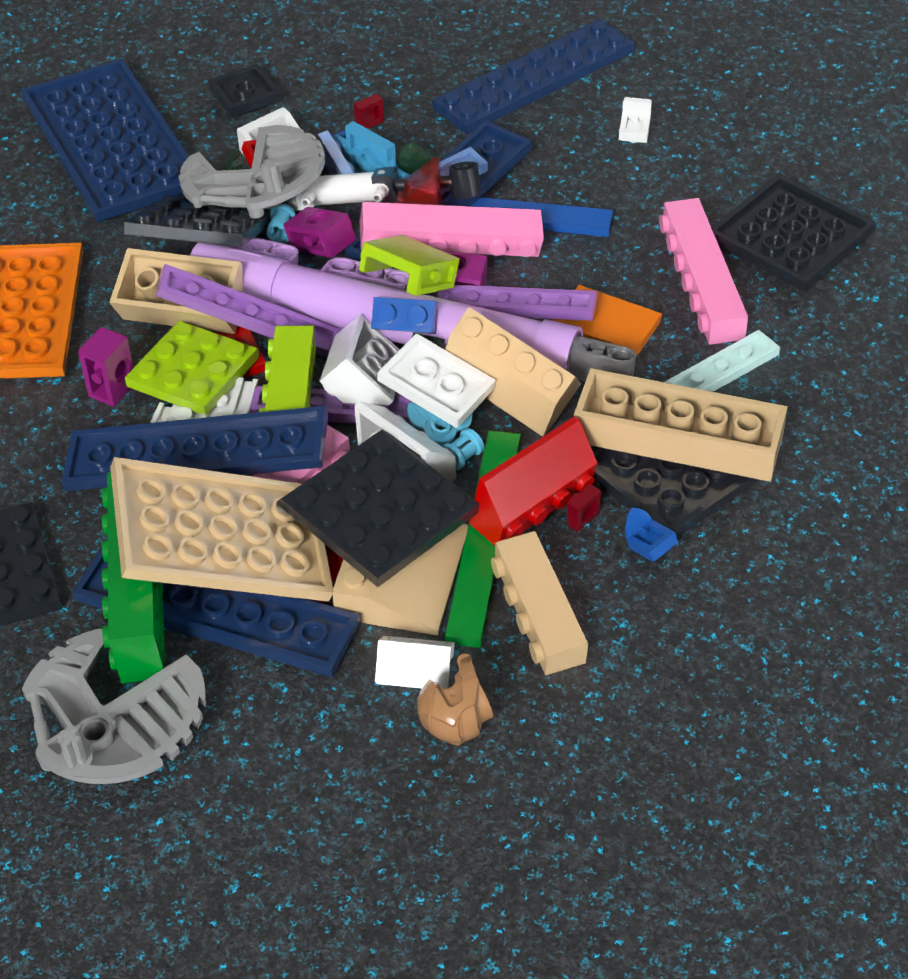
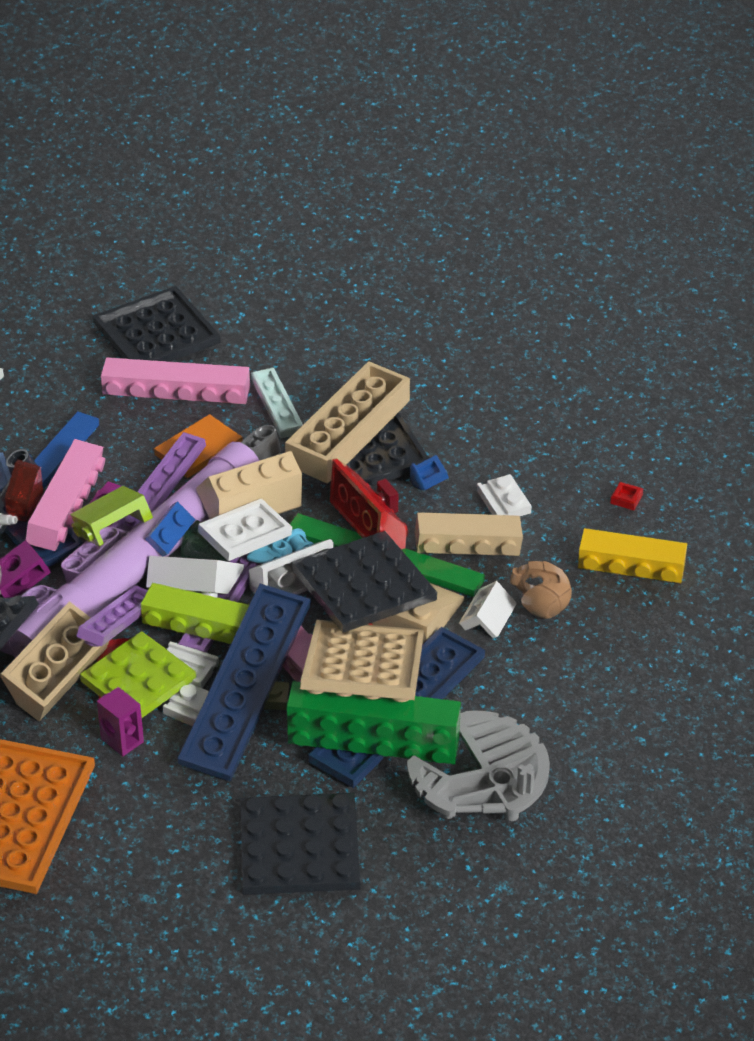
camera: 75 degrees left, 5 degrees down
(577, 799) = (632, 555): none -> yellow brick
(644, 631) = (504, 497): none -> white plate
(713, 771) = (626, 496): none -> red tile

